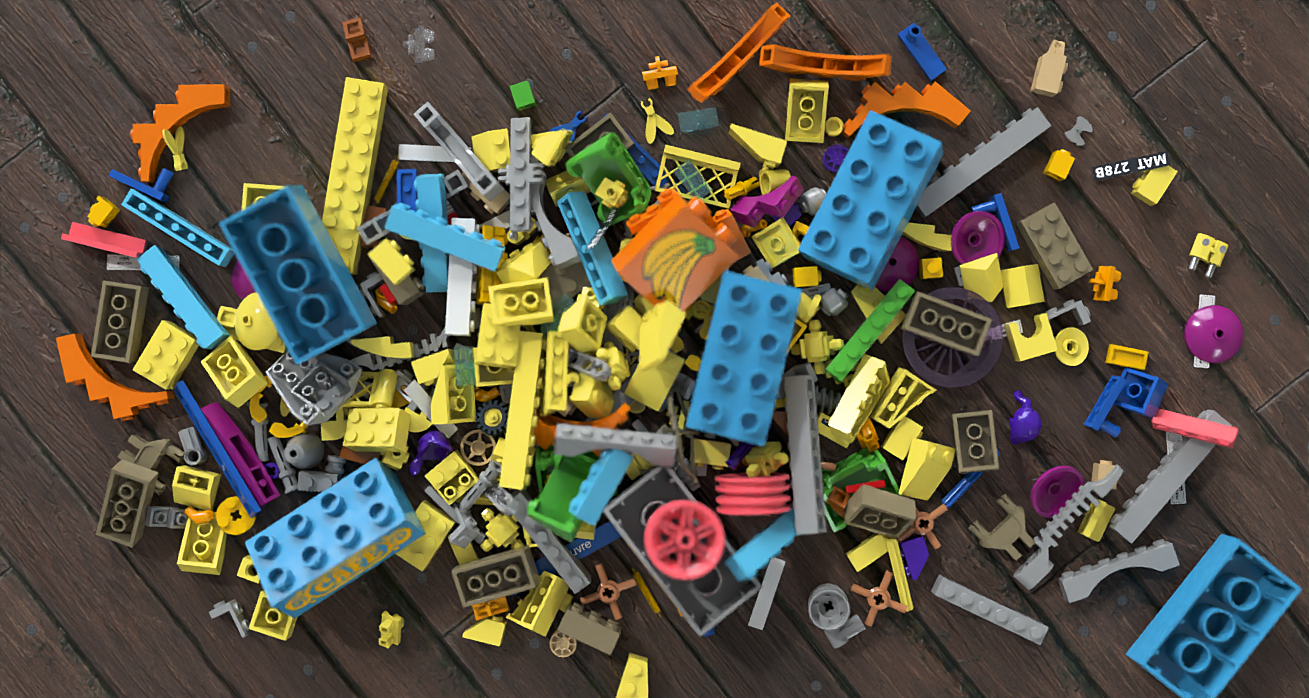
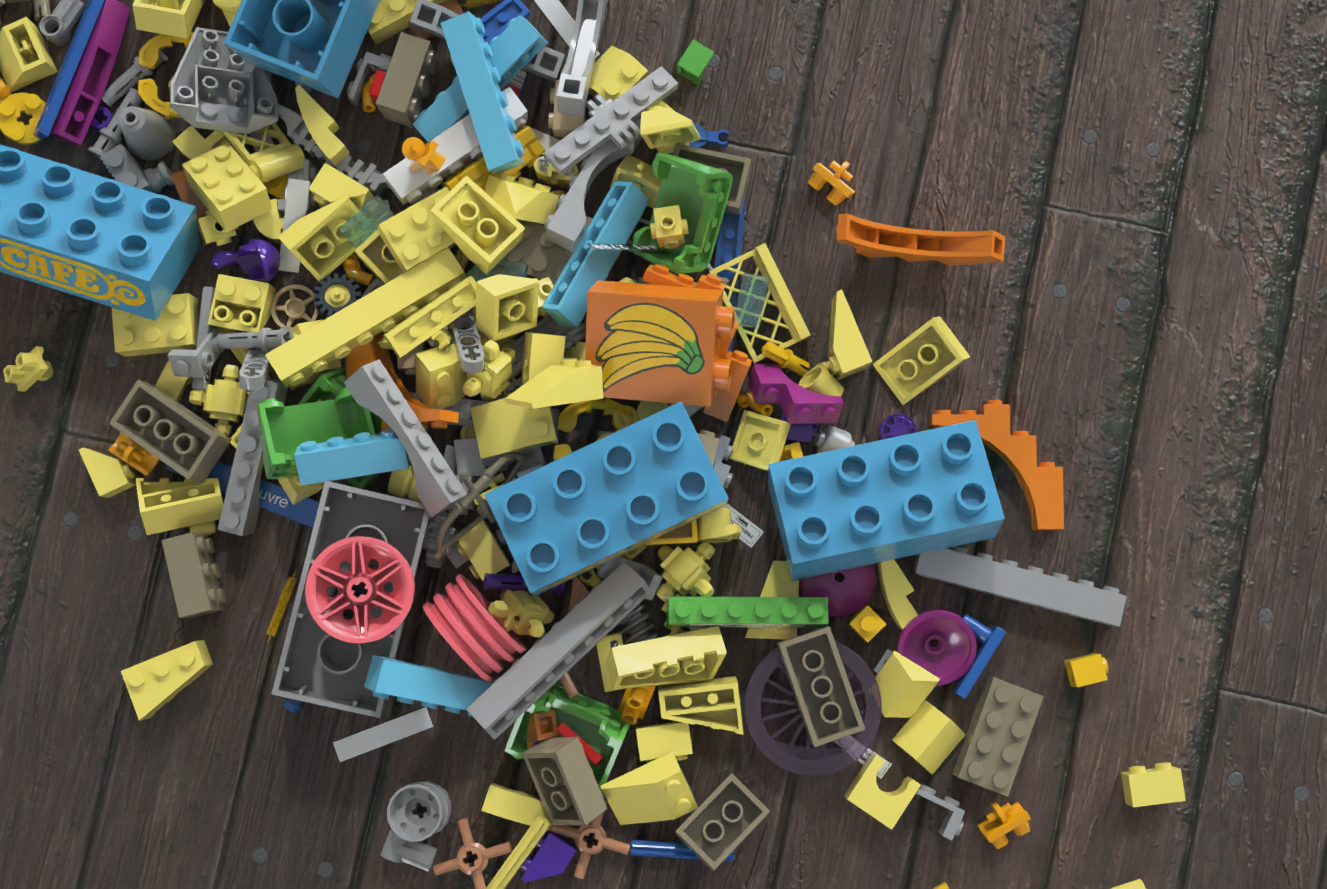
camera: 45 degrees right, 5 degrees down
(391, 261) = (413, 59): light yellow brick -> none
(456, 302) = (423, 155): none -> light orange hips
(562, 644) = (153, 562): tan wheel -> none
(604, 597) = (258, 561): nougat bar -> none
(648, 417) = (468, 457): none -> white sticker
(655, 120) = (781, 214): light yellow piece -> none
(698, 120) = (819, 258): clear light blue plate -> none
(806, 276) = (749, 501): yellow brick -> none
(824, 65) = (981, 338): orange arch -> none
(833, 126) = (928, 402): light yellow tile -> none
(834, 301) = (747, 551): light grey head -> none
(921, 51) = (1081, 430): blue piece -> none
(1026, 421) = (787, 860): dark purple piece -> none
(1050, 70) = (1175, 578): tan hinge -> none
(1074, 134) = (1130, 660): light grey piece -> none
(1077, 344) = (917, 846): light yellow dish -> none
(1131, 166) = (1149, 747): black sticker -> none

